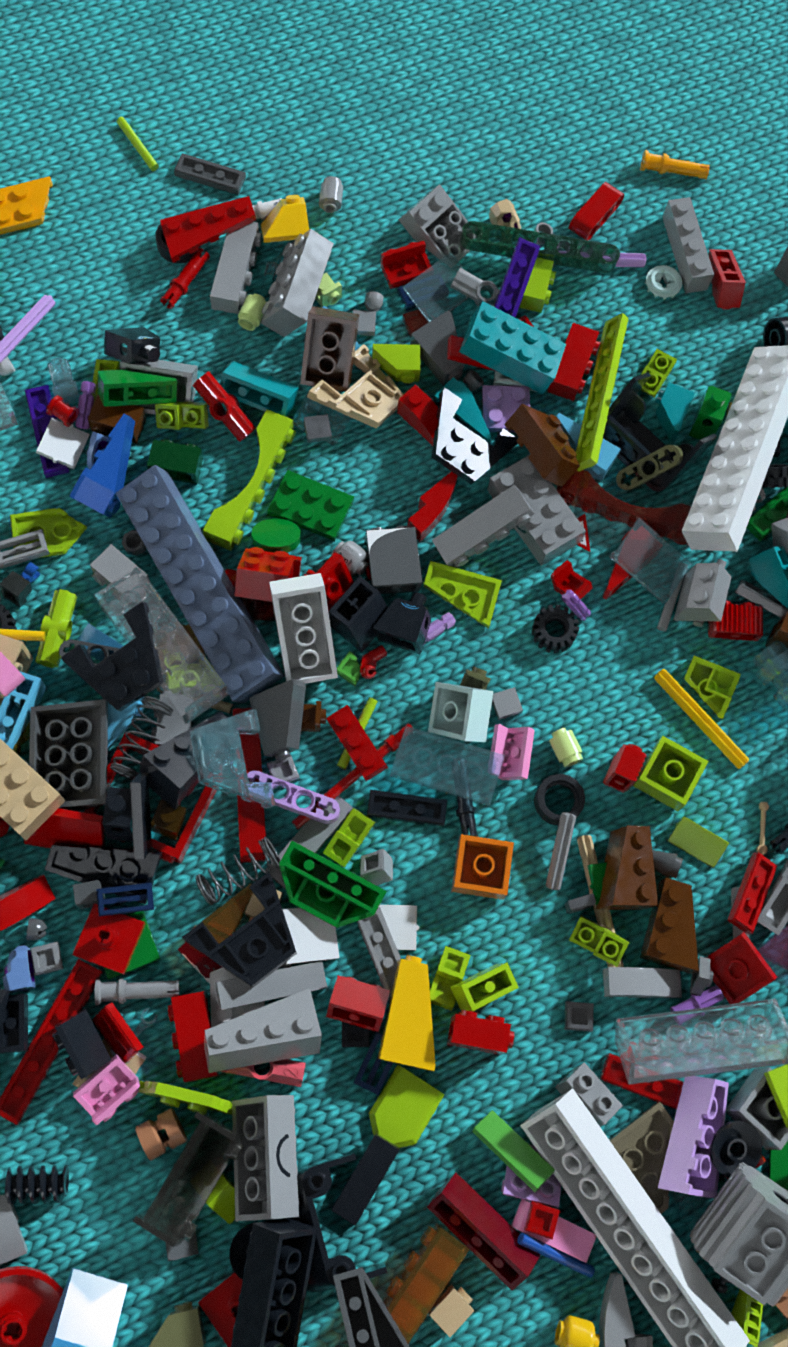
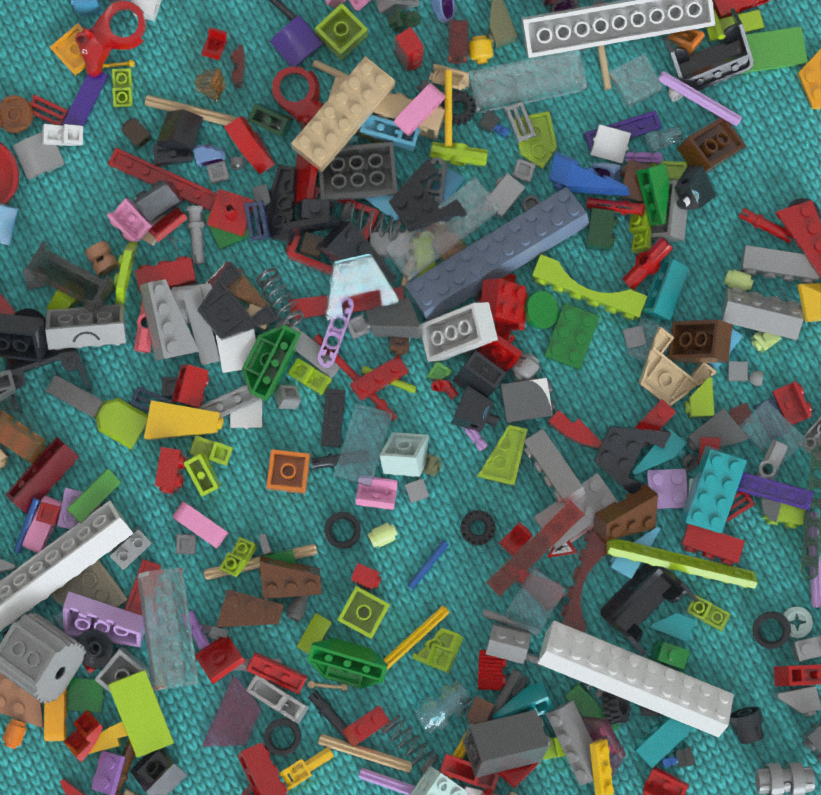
camera: 95 degrees right, 10 degrees up
(35, 1186) = (67, 180): black piece -> none
(62, 411) = (634, 140): red bush -> none
(78, 330) = (711, 145): none -> reddish brown slope
(86, 550) = (523, 170): none -> light grey tile
(153, 411) = (636, 207): none -> red pin
(535, 290) = (770, 509): none -> dark grey tile
(553, 995) = (200, 525): none -> bright pink beam
(560, 851) = (302, 529): light grey axle -> none
(561, 517) = (535, 548): none -> clear red arch
(576, 605) = (494, 542): medium lavender axle -> none
(602, 694) = (428, 564): none -> blue bar
(630, 470) = (609, 597): olive beam -> none
(641, 982) = (209, 589): light grey slope -> none
(691, 299) = (771, 644): none -> black tyre
(735, 795) = (347, 663): none -> green wedge
(757, 278) = (801, 700): none -> light grey slope

